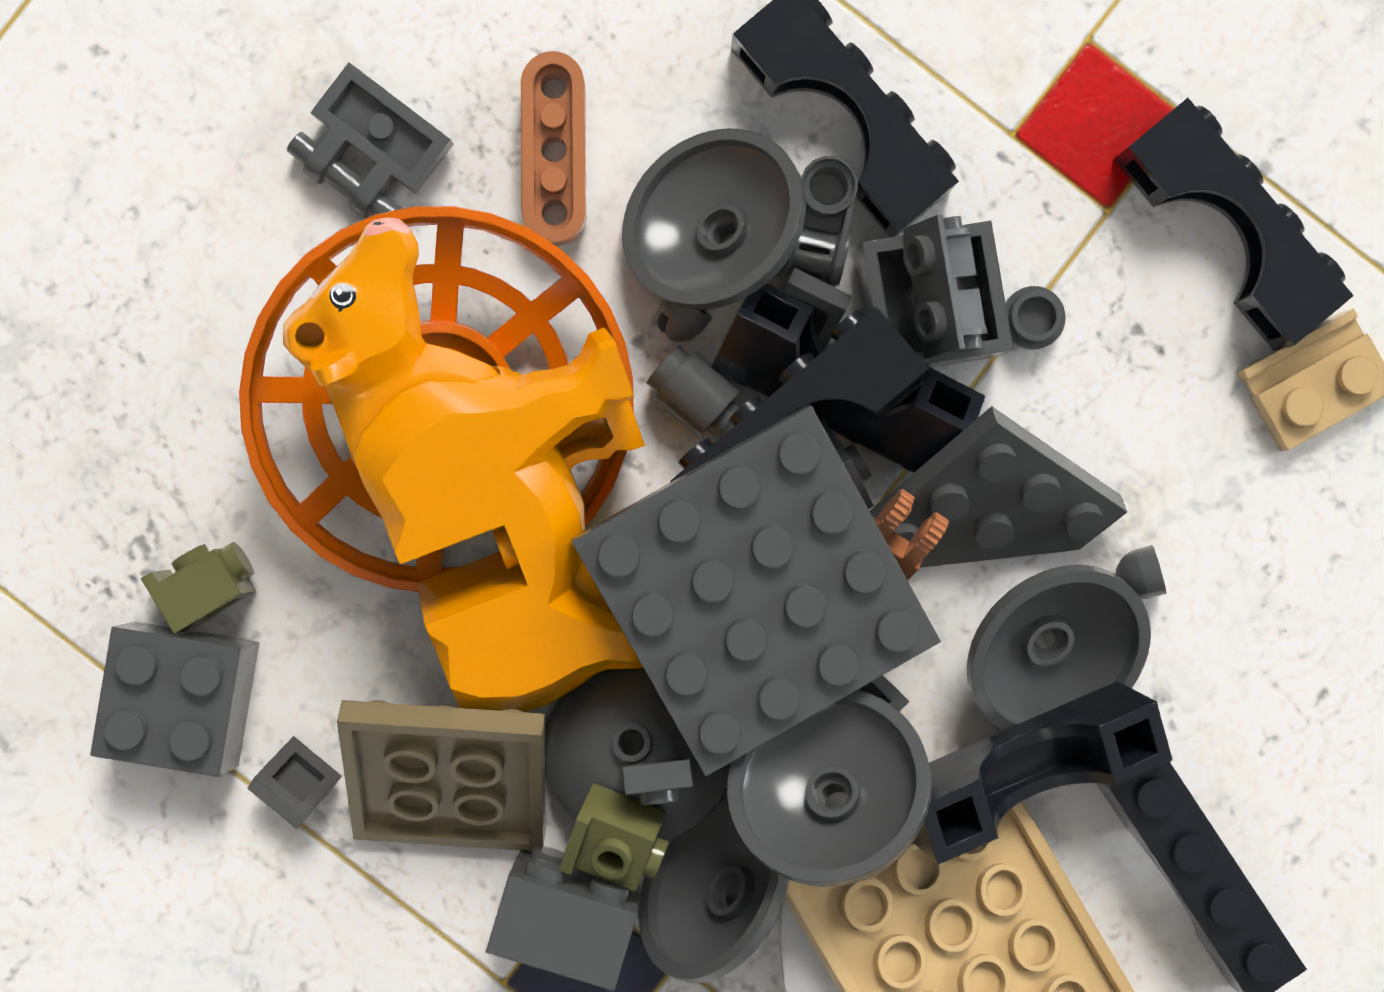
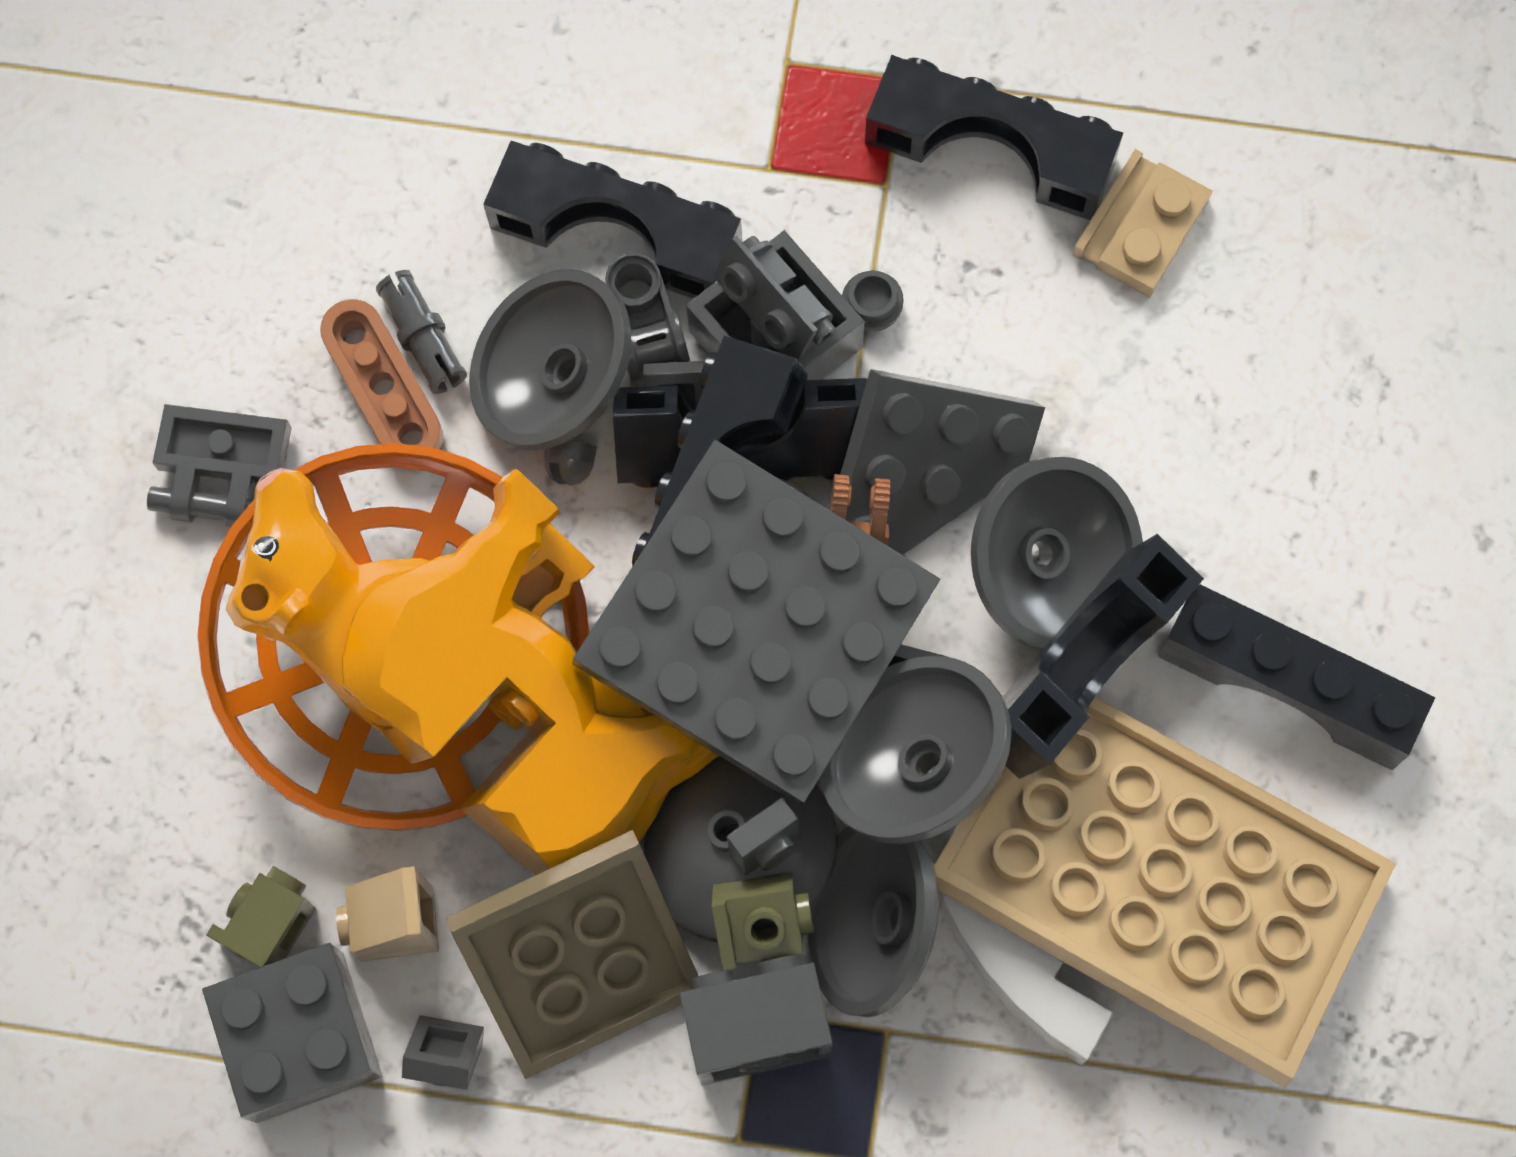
camera: 20 degrees left, 15 degrees down
(306, 647) = (389, 916): none -> tan slope
(615, 118) = (421, 331): none -> dark grey pin
(694, 392) = (612, 513): dark grey brick -> none
(1142, 572) = (1095, 450): dark grey hinge -> none

